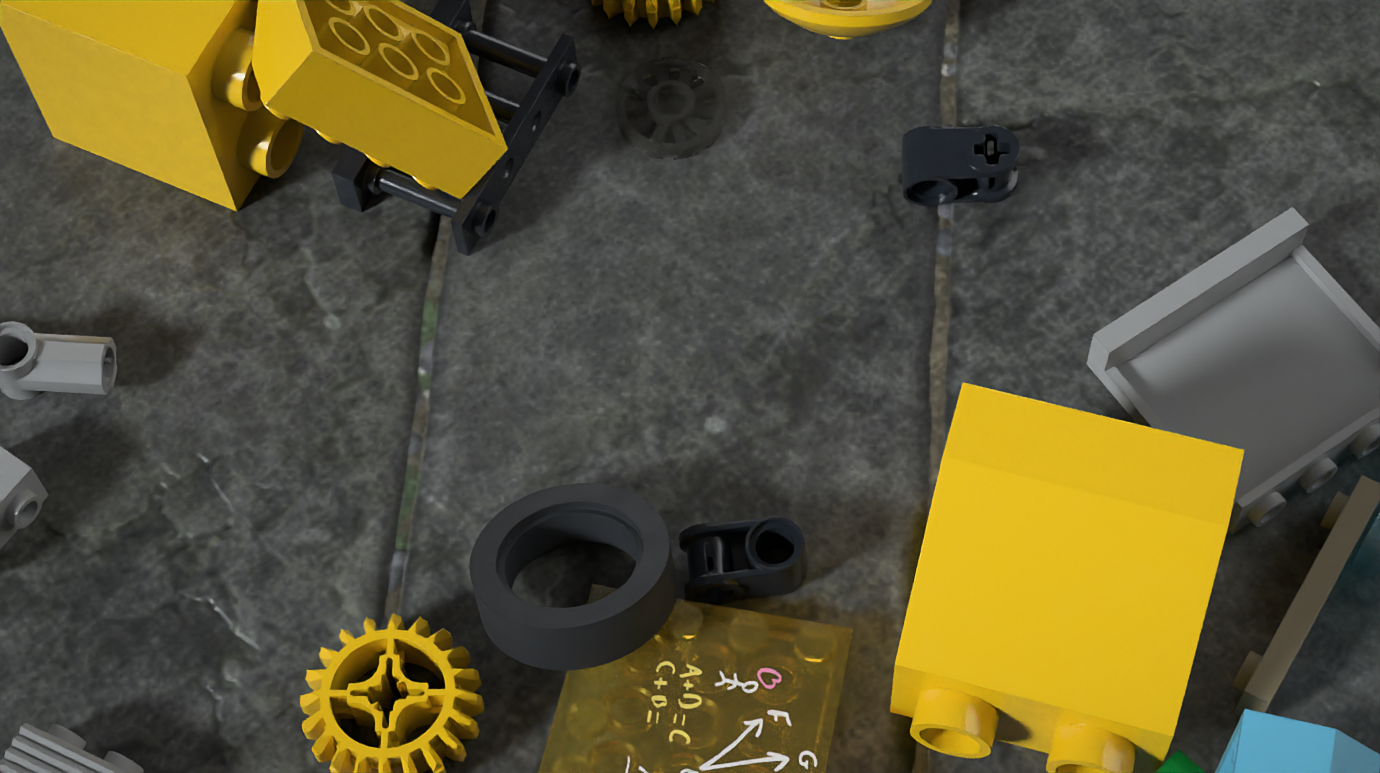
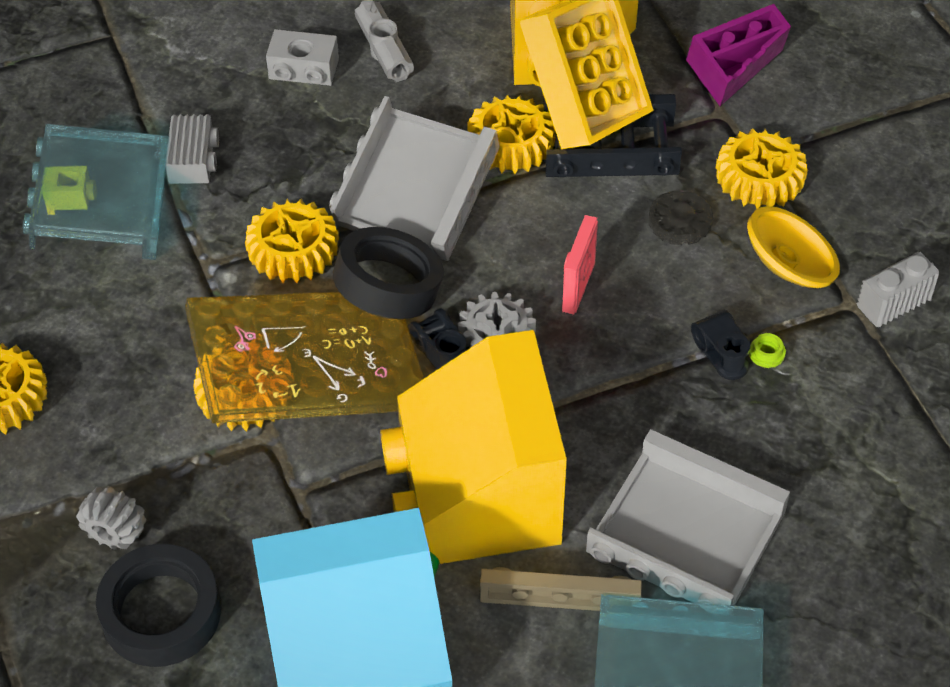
camera: 60 degrees right, 10 degrees down
(388, 446) = (414, 177): none -> light grey panel
(390, 277) = (521, 129): none -> yellow gear
(721, 282) = (579, 264): none -> coral plate
(740, 446) = (481, 318): none -> light grey gear
(1001, 104) = (767, 343): none -> lime plate

